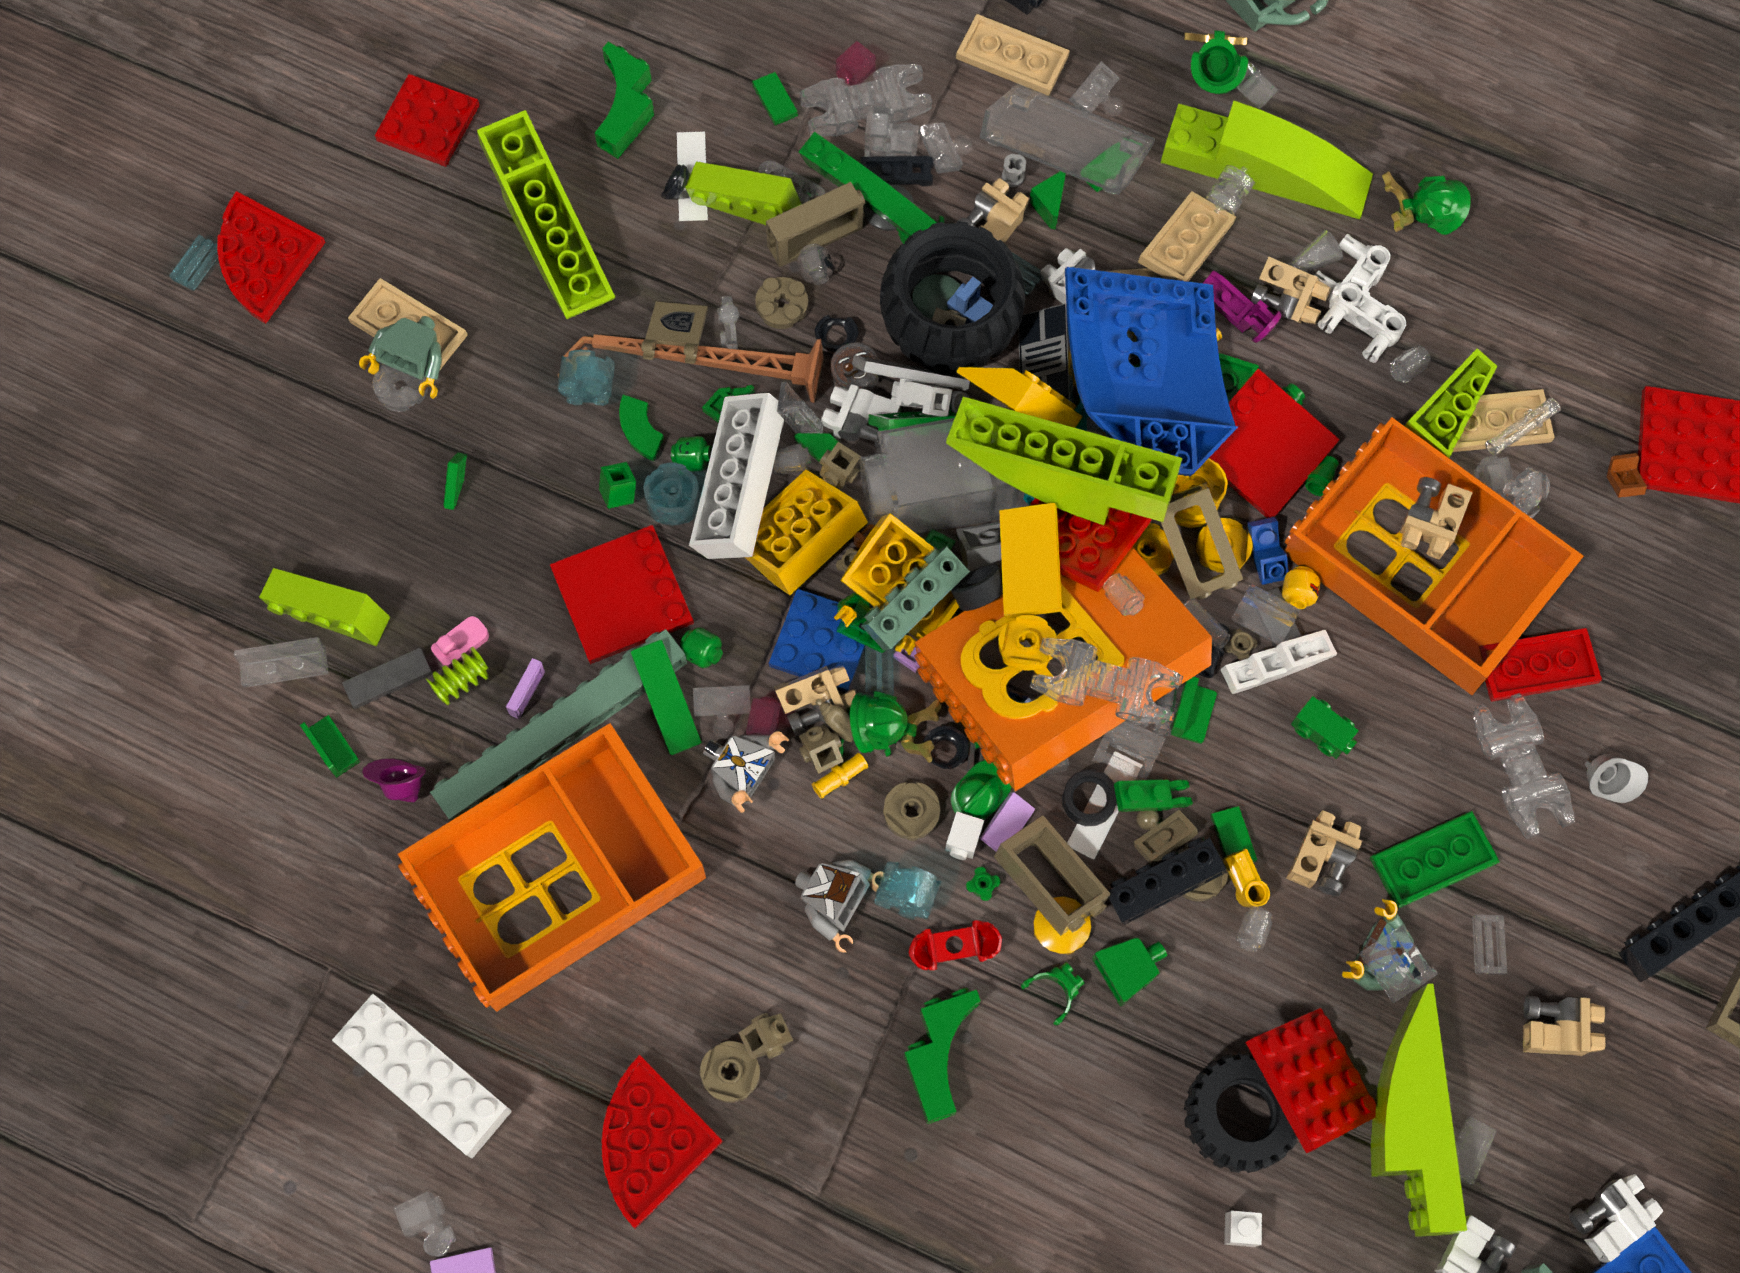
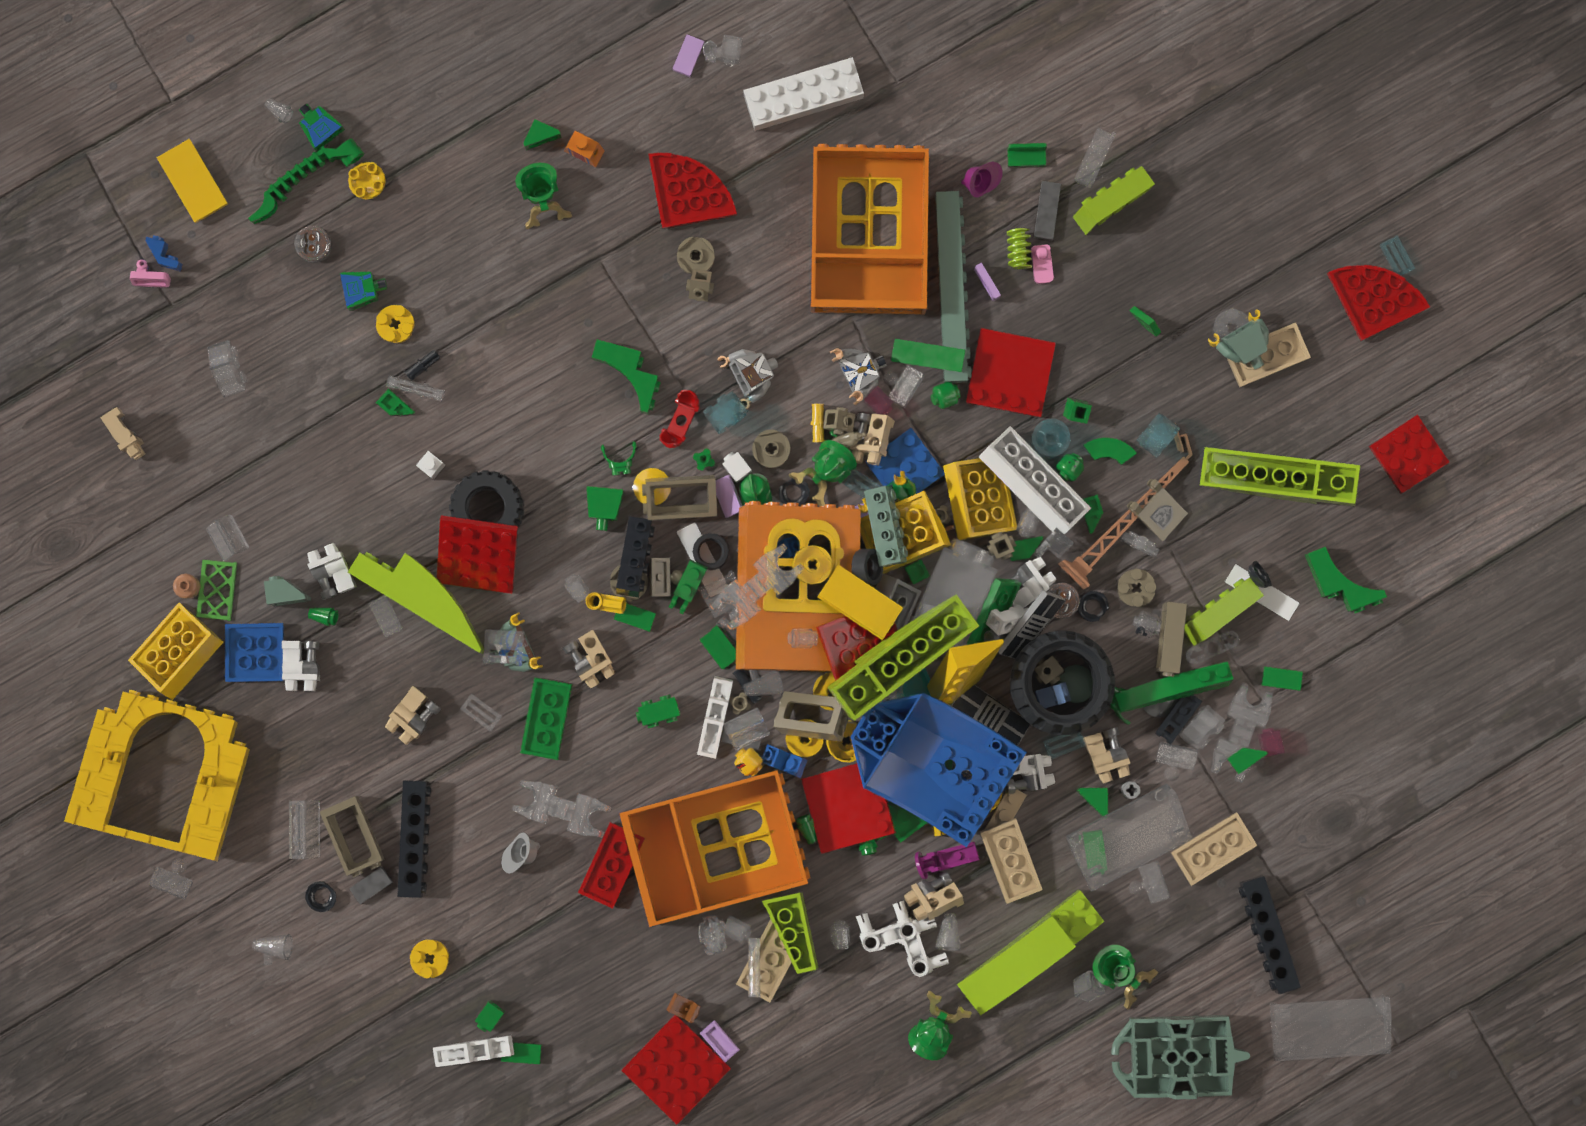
camera: 125 degrees right, 15 degrees up
(893, 72) = (1245, 758): none -> green tile
(1232, 186) = (1024, 910): clear wheel -> none
(1432, 525) = (724, 851): tan hips -> none
(1533, 1232) = (325, 616): none -> green cone
(1625, 419) = (719, 1041): none -> lavender tile

